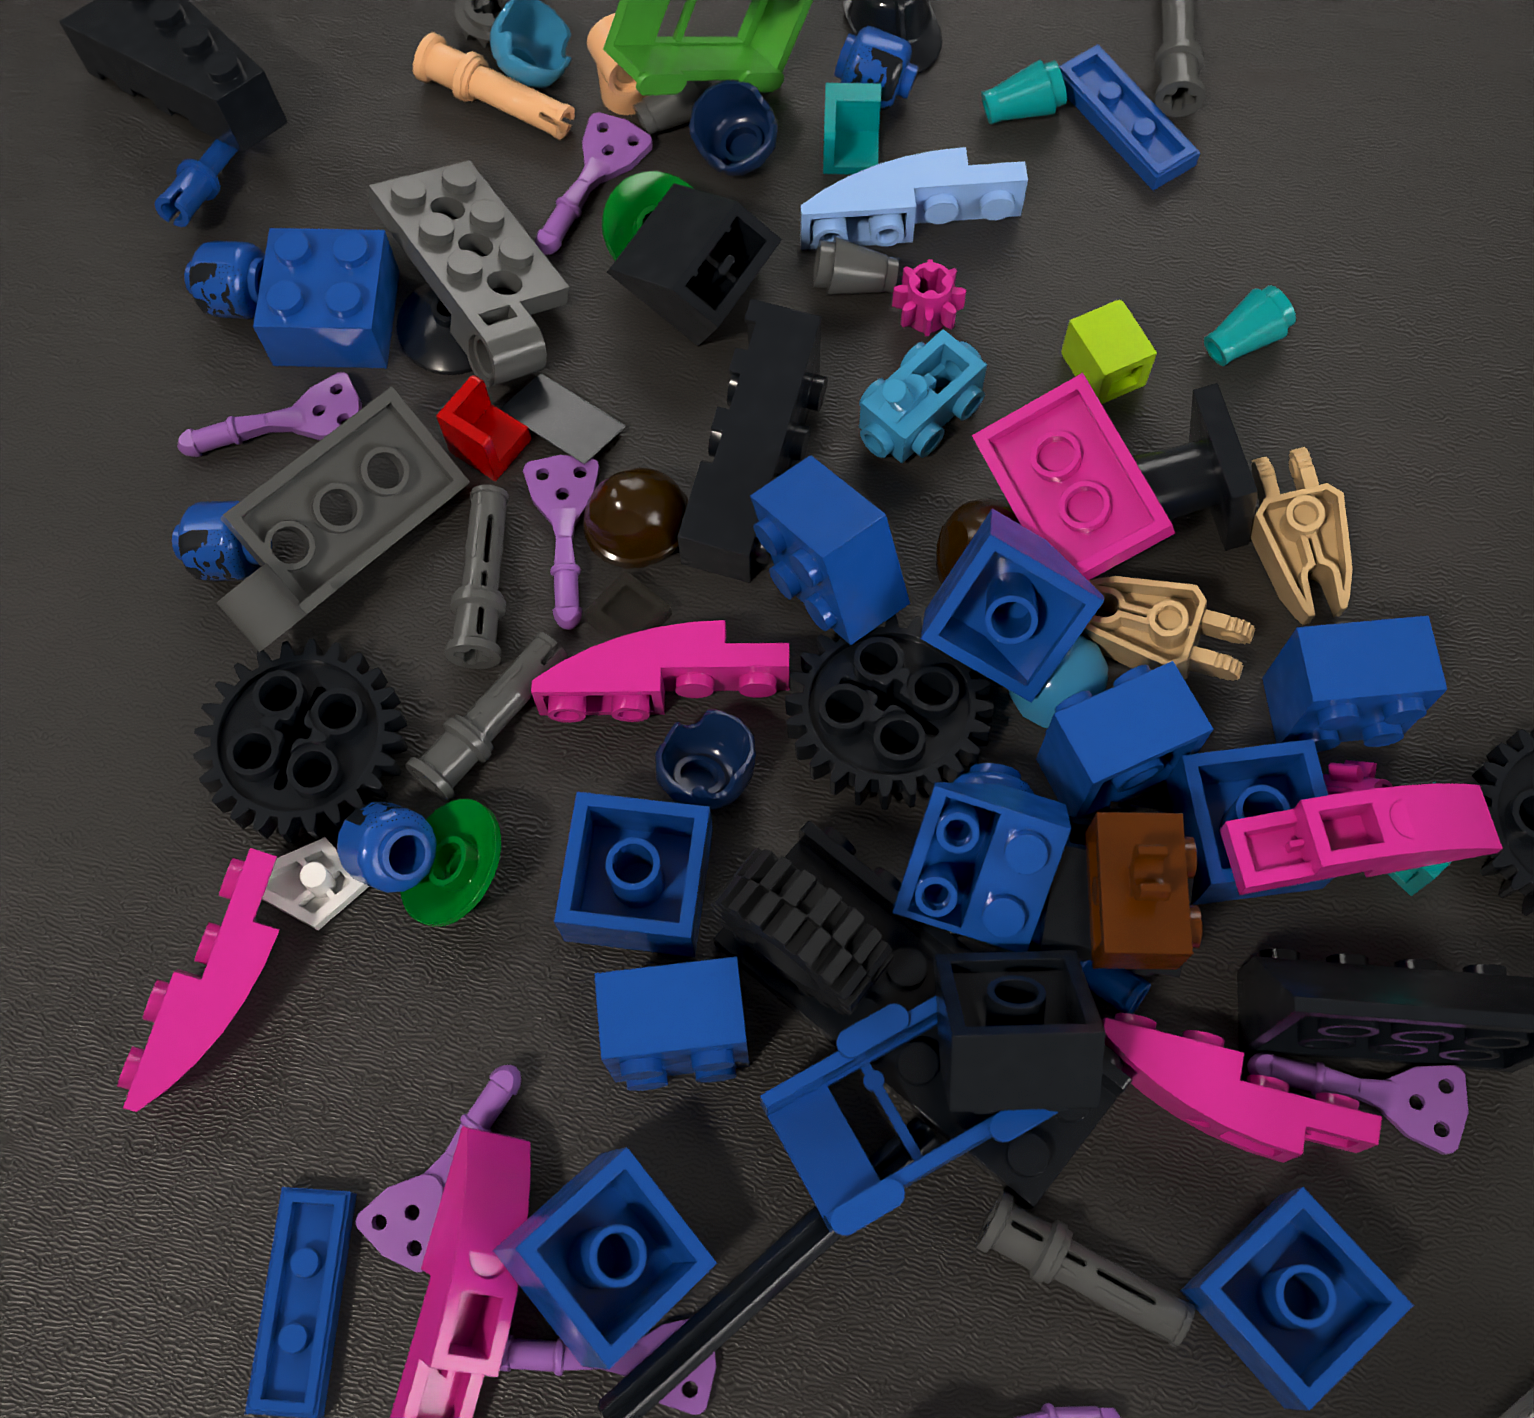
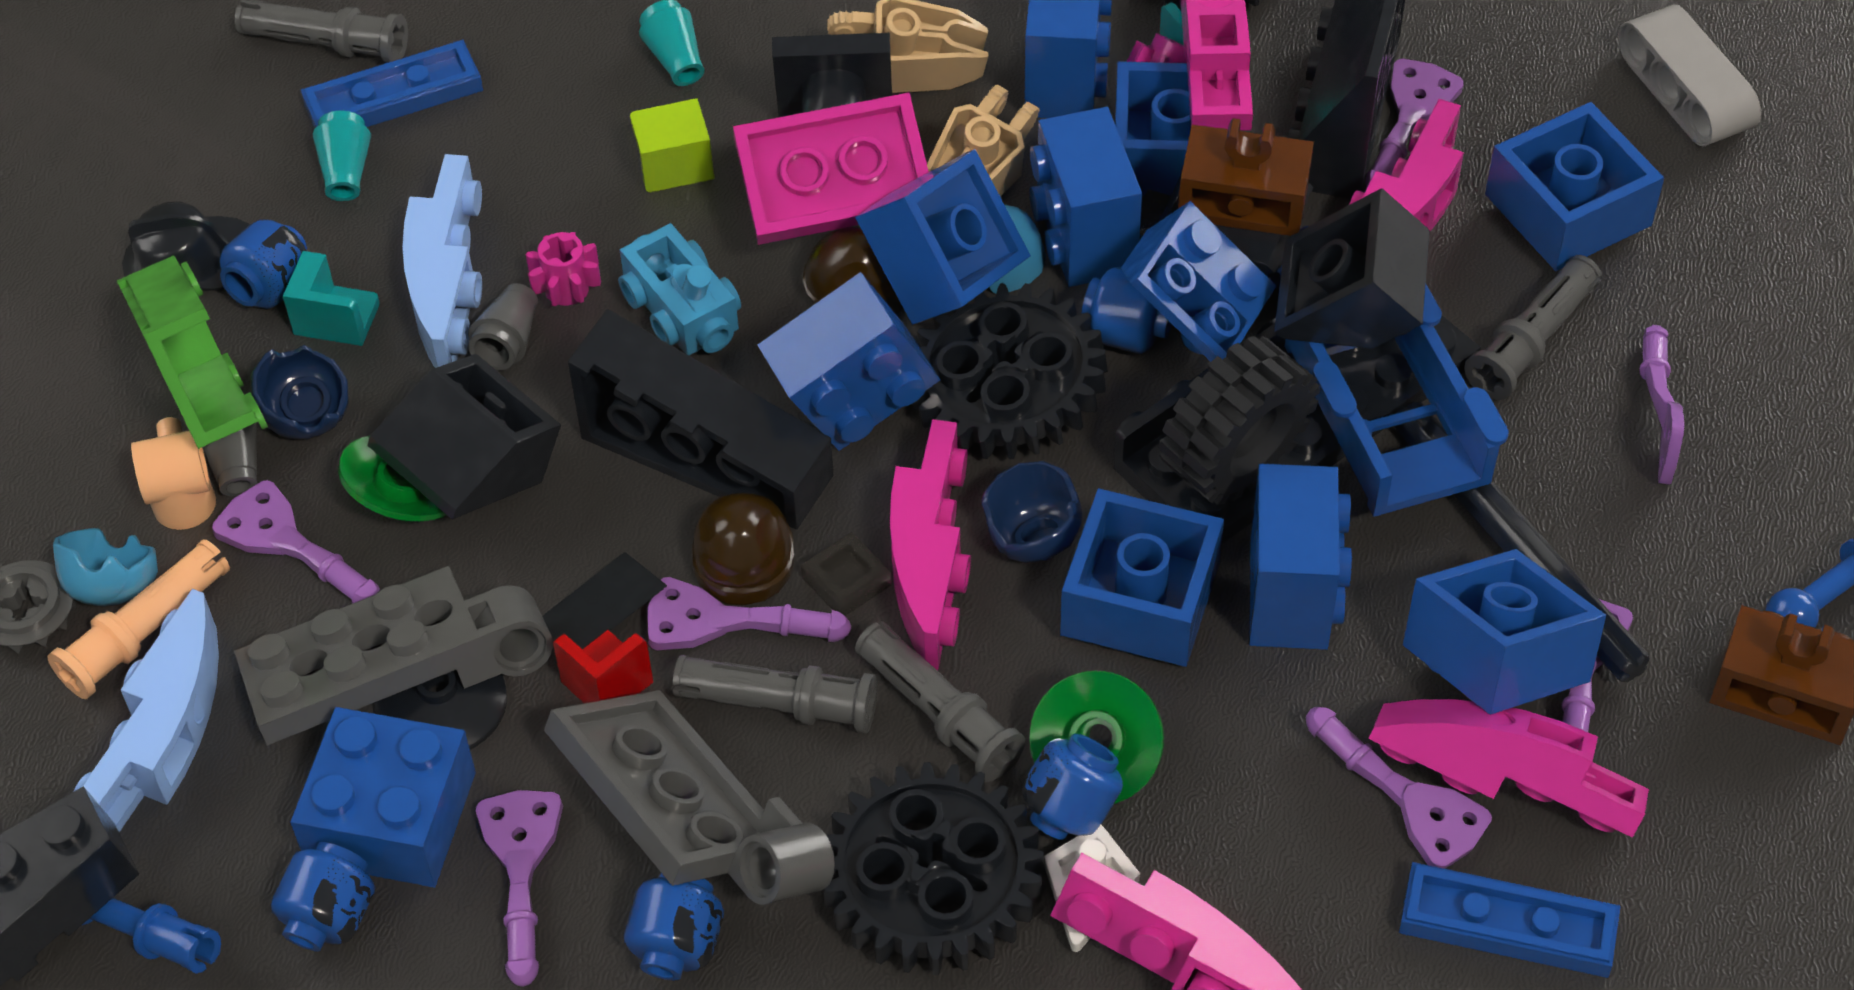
camera: 80 degrees left, 15 degrees down
(402, 133) = (169, 709): none -> light blue slope

